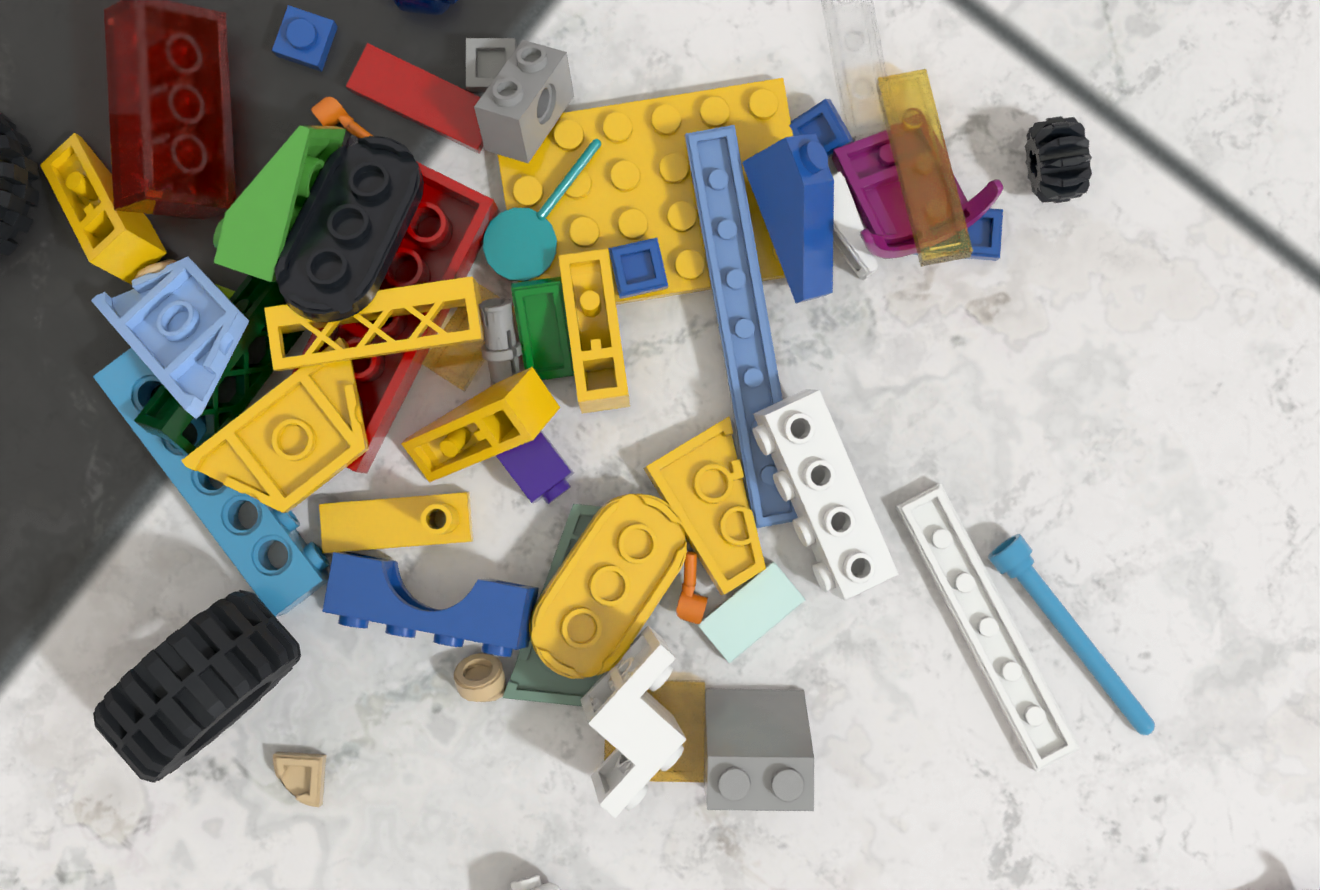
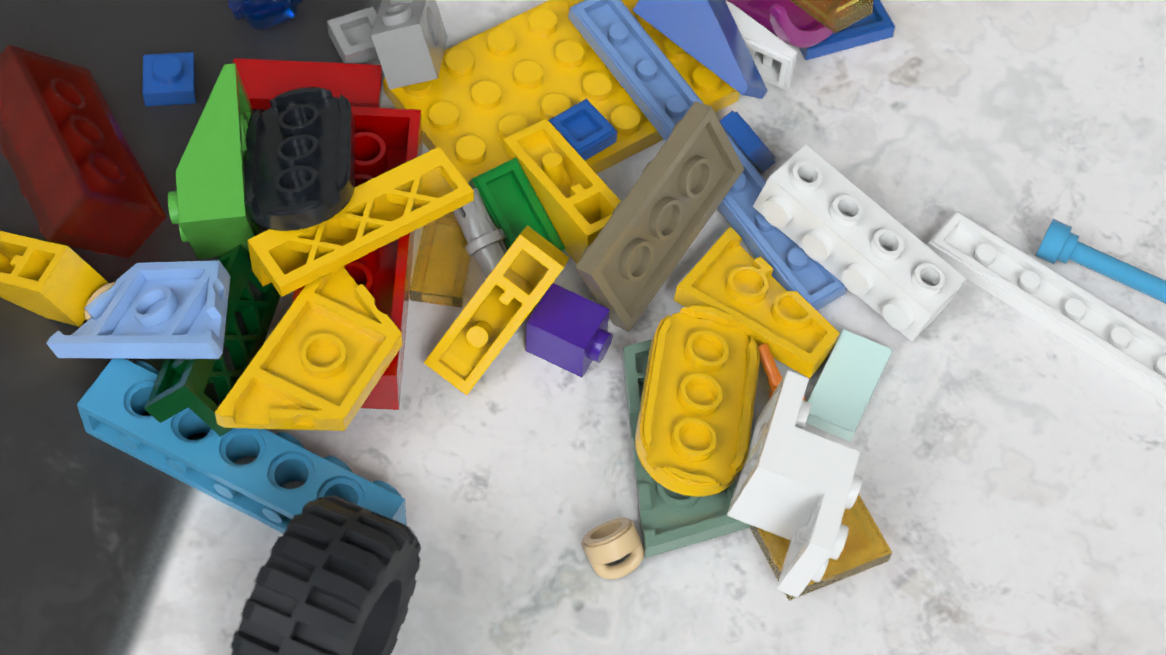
camera: 30 degrees left, 30 degrees down
(372, 590) = (462, 504): blue arch -> none
(396, 522) = (455, 437): yellow piece -> none
(522, 241) = (464, 144): teal piece -> none
(654, 406) = (660, 216): none -> dark tan plate
(757, 750) = (939, 489): light grey slope -> none
(789, 335) = (748, 141): none -> blue tile

